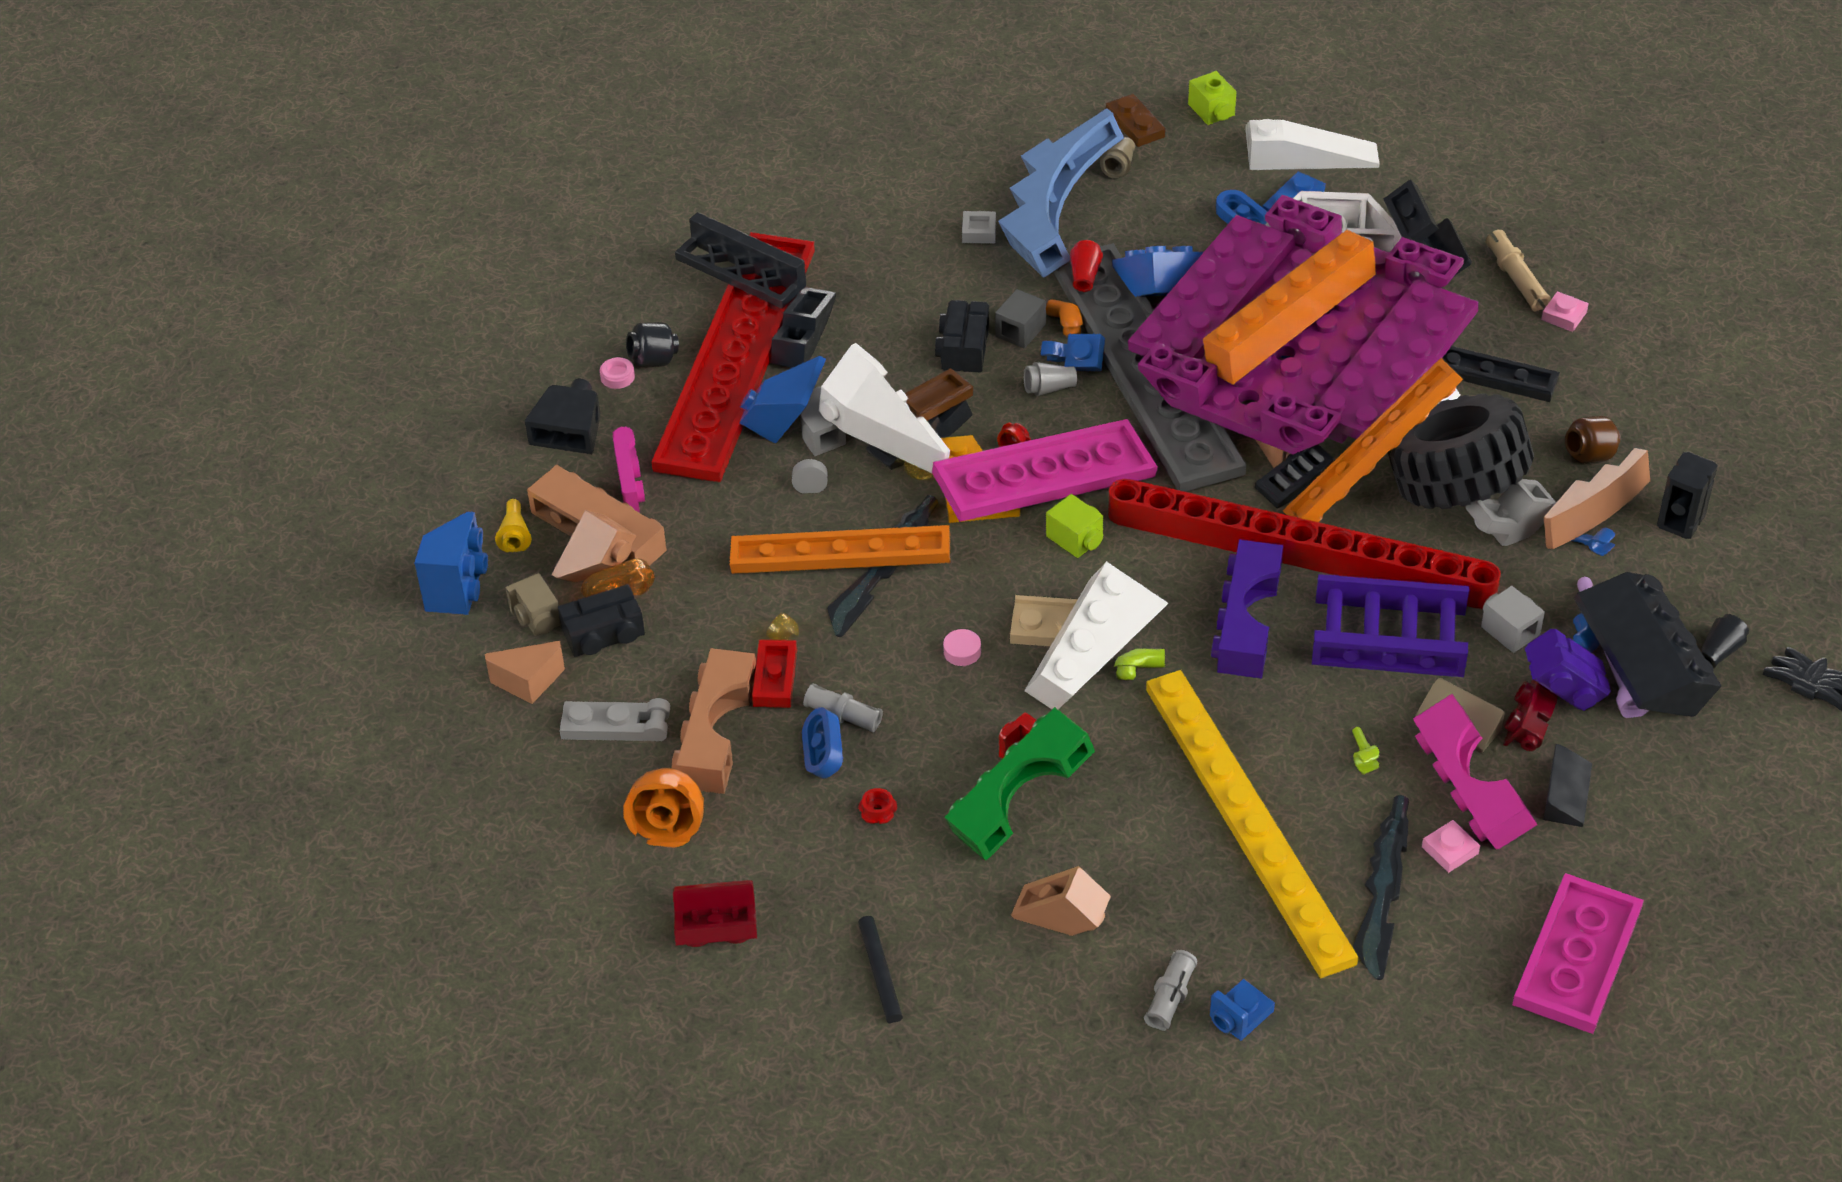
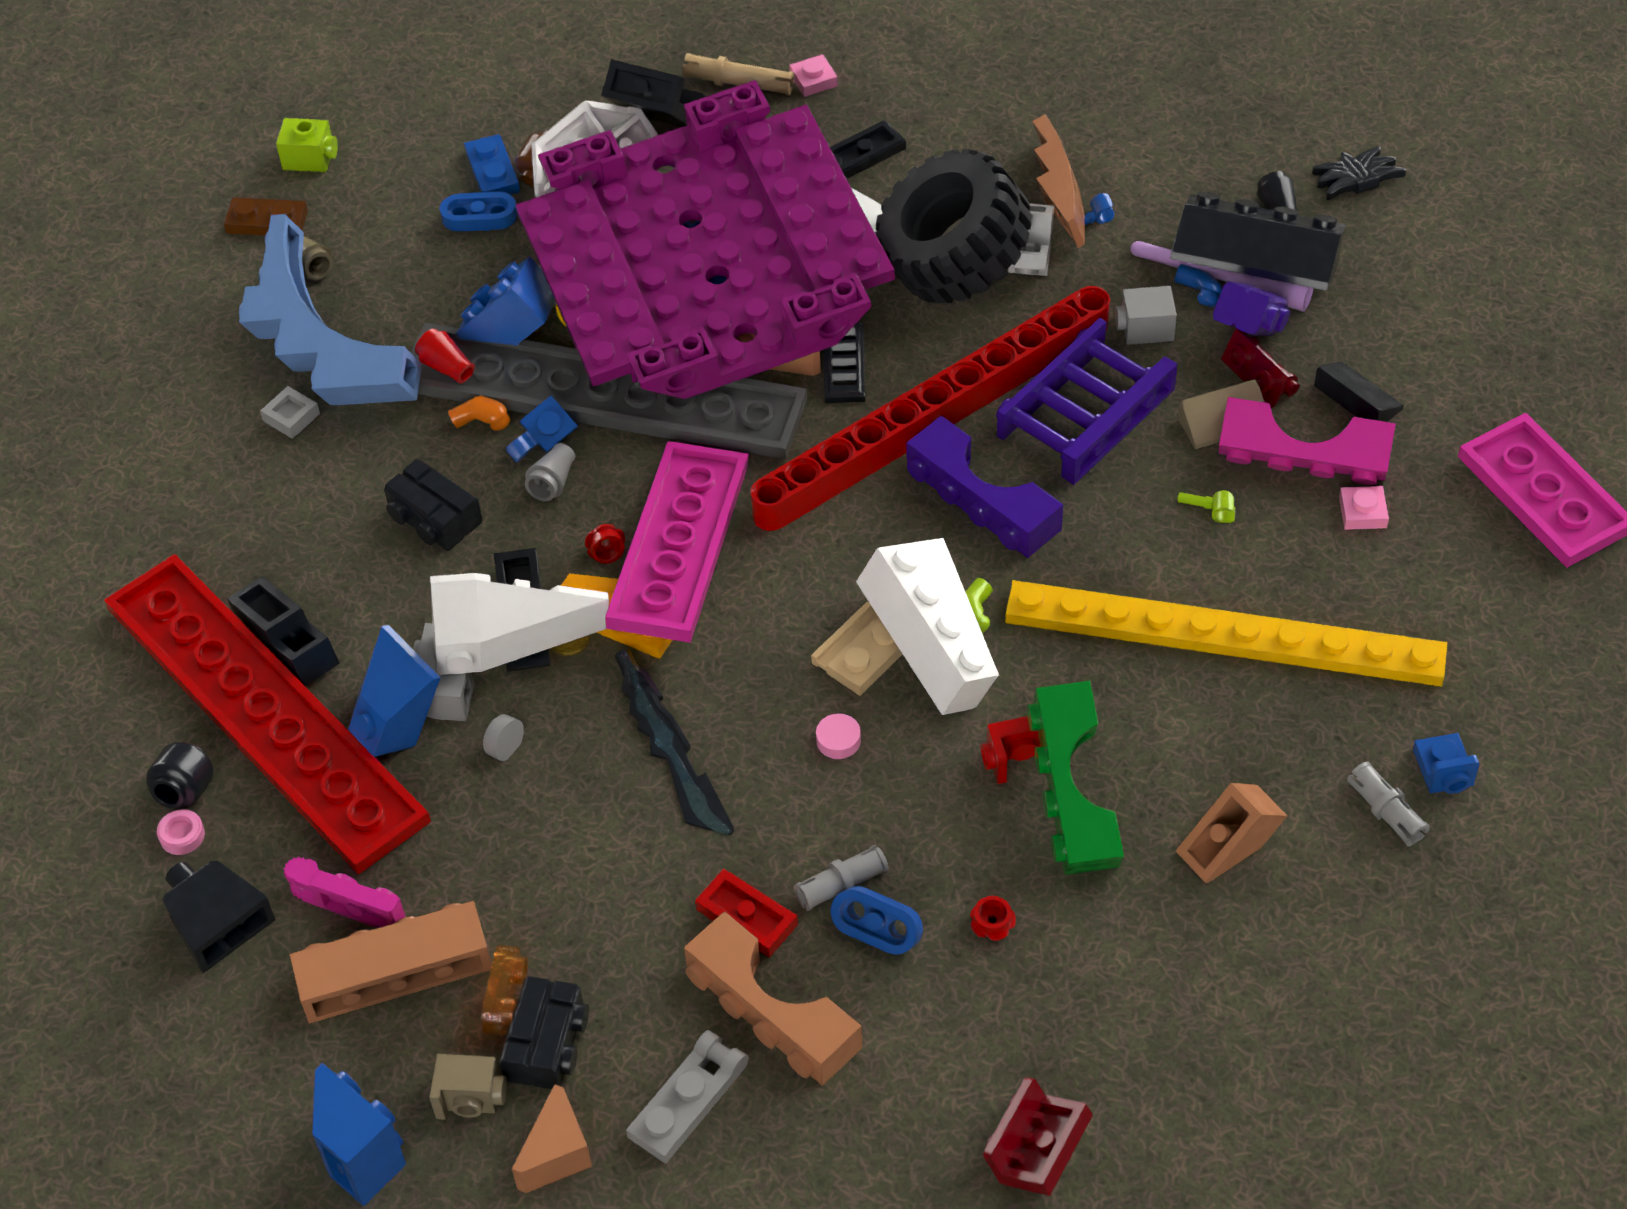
camera: 55 degrees left, 5 degrees up
(513, 532) = (334, 1050): yellow cone -> none
(593, 547) = (454, 978): nougat slope -> none
(664, 801) = (865, 1094): orange cylinder -> none
(749, 257) = (148, 619): black fence -> none
(782, 627) = (690, 874): clear yellow hinge -> none
(840, 549) = (629, 766): orange plate -> none
(880, 969) = (1197, 1029): black bar -> none
(938, 394) = (513, 557): reddish brown tile -> none
(1020, 318) = (453, 447): dark grey brick -> none
(1074, 526) = (768, 558): lime brick -> none
(1290, 306) = (688, 230): orange brick -> none
(1297, 146) = (430, 127): white wedge -> none
(1375, 442) = (905, 274): orange plate -> none
(1375, 933) = (1372, 579): black sword -> none
(1592, 439) = (989, 136): reddish brown head -> none
(1687, 495) = (1117, 120): black brick -> none

